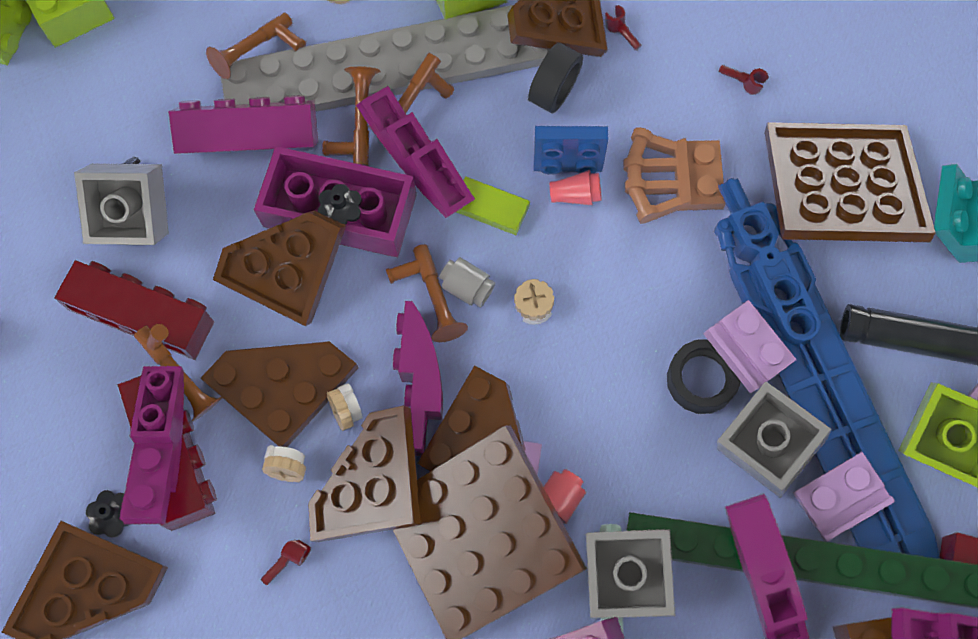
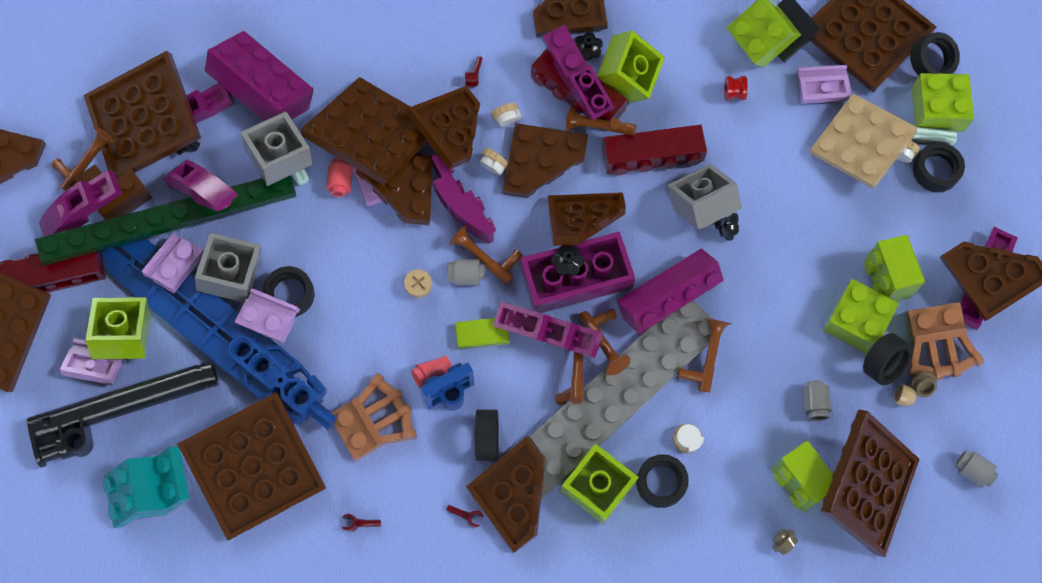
camera: 145 degrees right, 0 degrees up
(78, 427) = (631, 66): none -> lime brick

